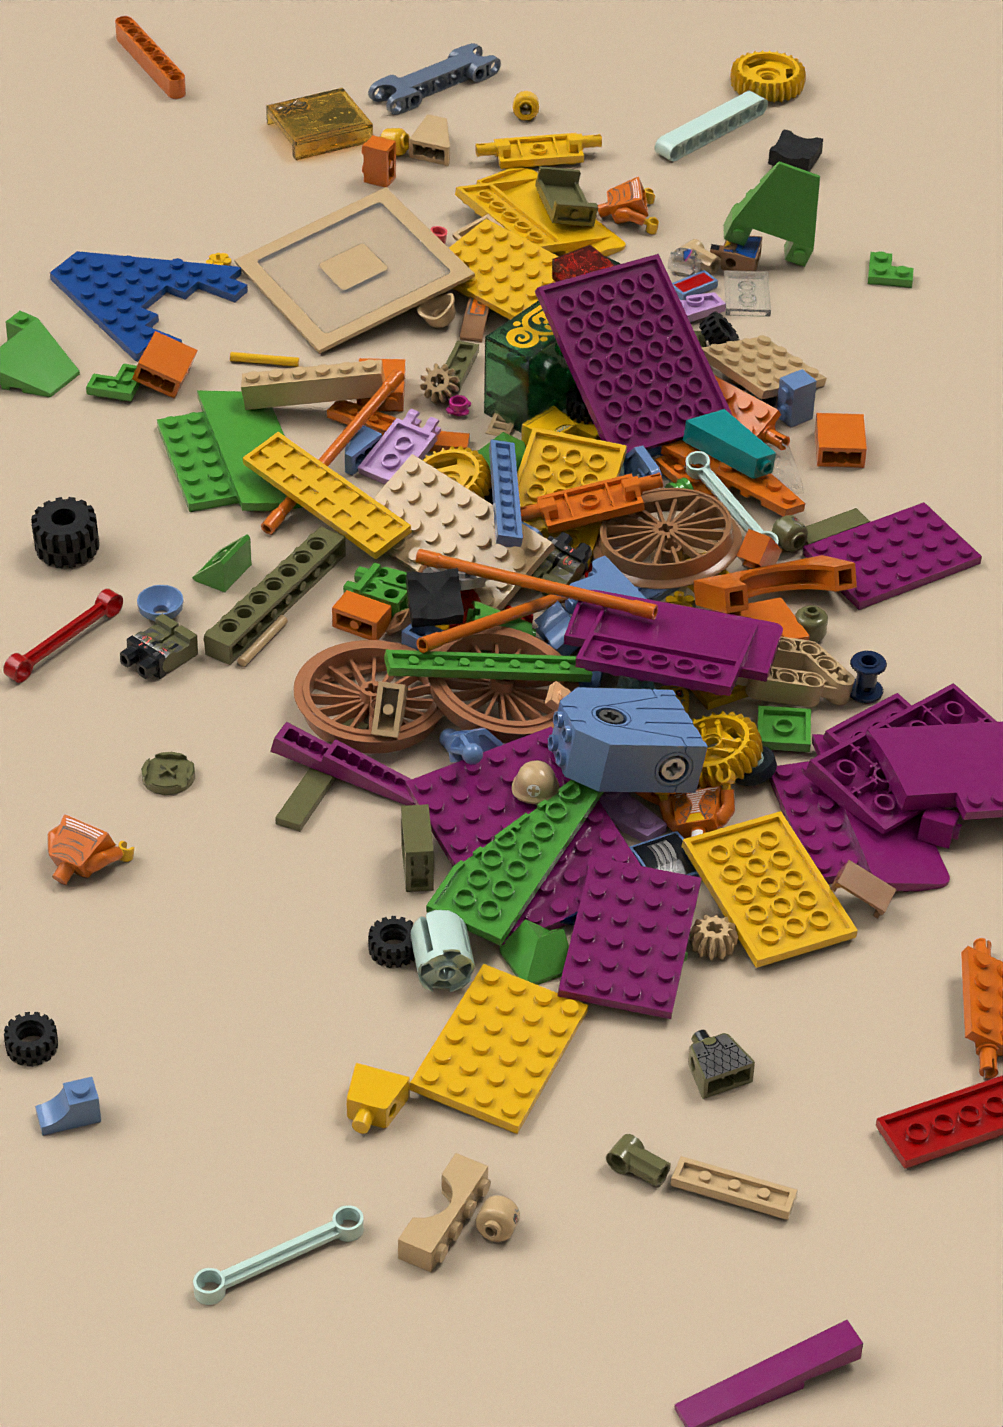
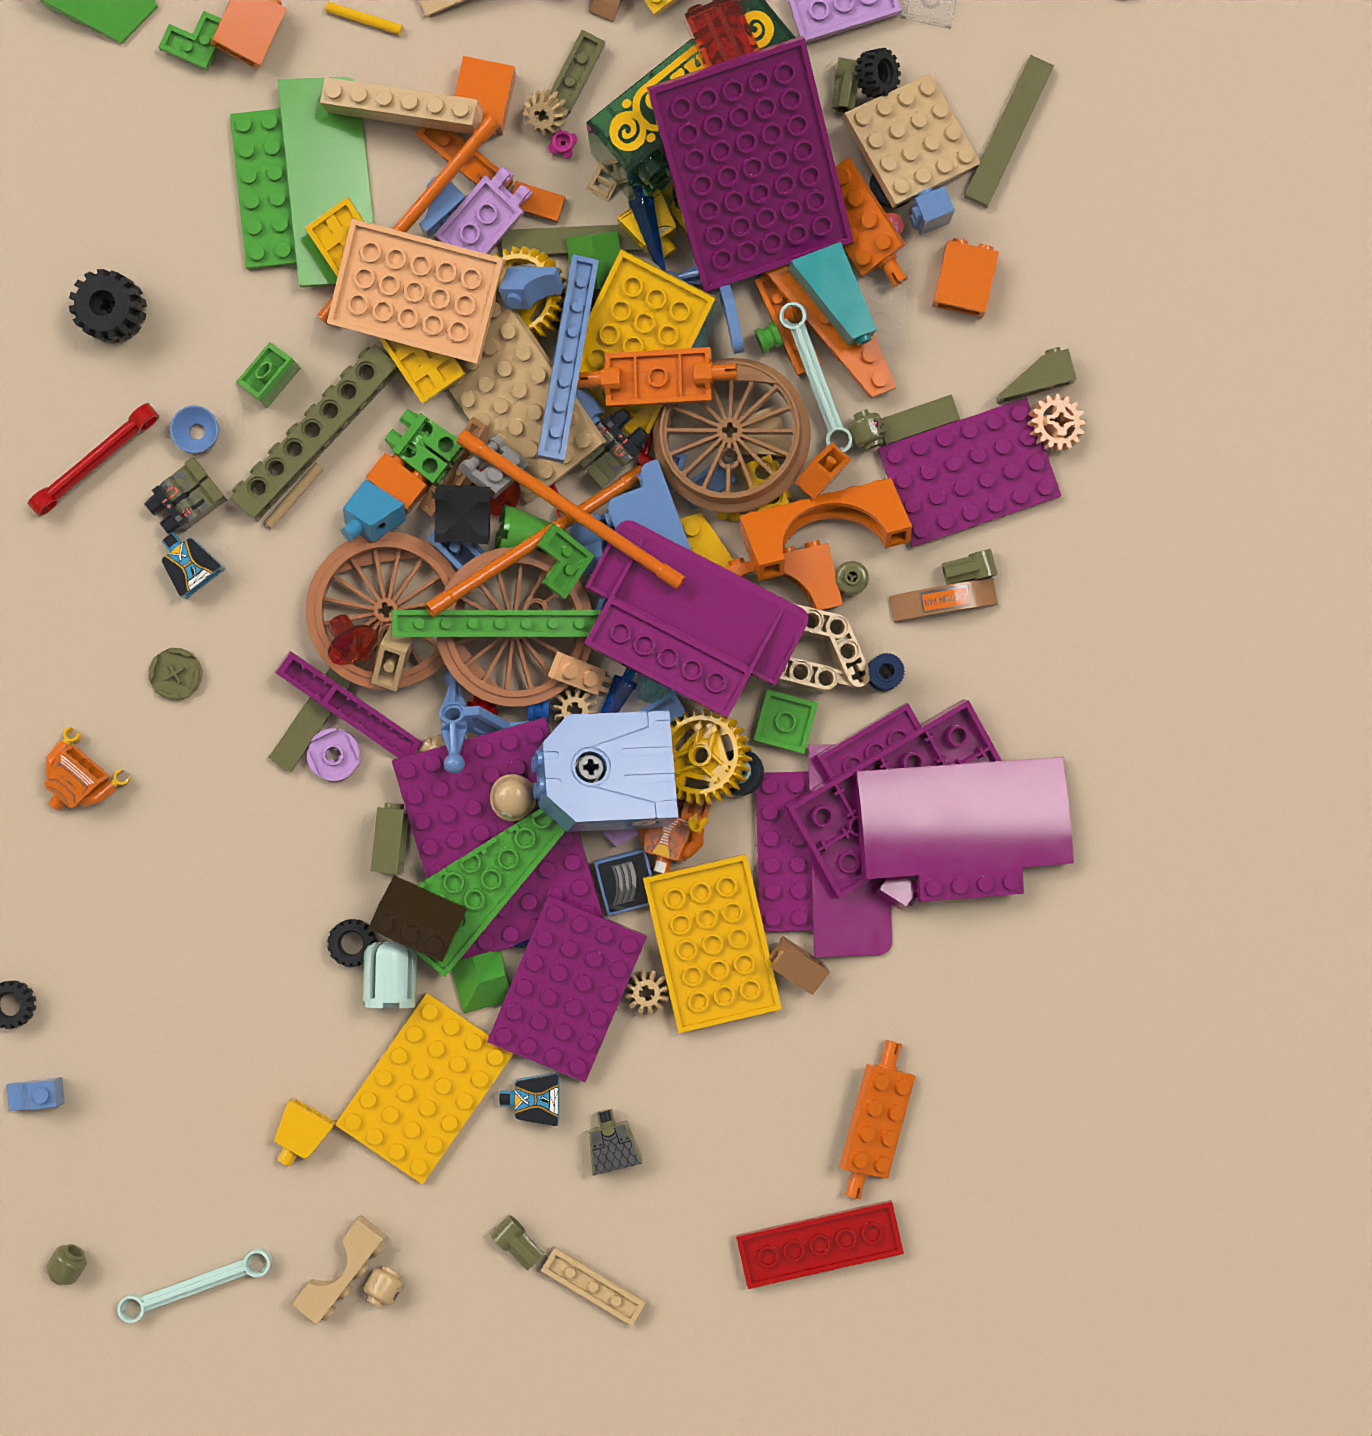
camera: 15 degrees right, 45 degrees up
(126, 1251) = (66, 1264): none -> olive head
(172, 692) = (189, 565): none -> torso
(337, 627) = (371, 513): none -> dark azure torso
(342, 818) = (329, 769): none -> lavender plate
(347, 695) = (350, 641): none -> clear red piece
(355, 472) = (416, 291): none -> light nougat plate
(459, 454) = (527, 285): none -> medium blue arch
(461, 887) = (417, 918): none -> dark brown slope
(542, 622) = (570, 560): none -> bright green plate
(546, 416) = (645, 215): none -> clear blue bar
(622, 1036) = (534, 1099): none -> torso
(842, 362) = (1009, 131): none -> olive tile
(901, 629) = (943, 599): none -> medium nougat slope
(922, 606) = (976, 566): none -> olive piece
(932, 486) = (1047, 373): none -> olive slope
(957, 510) = (1050, 431): none -> light nougat gear

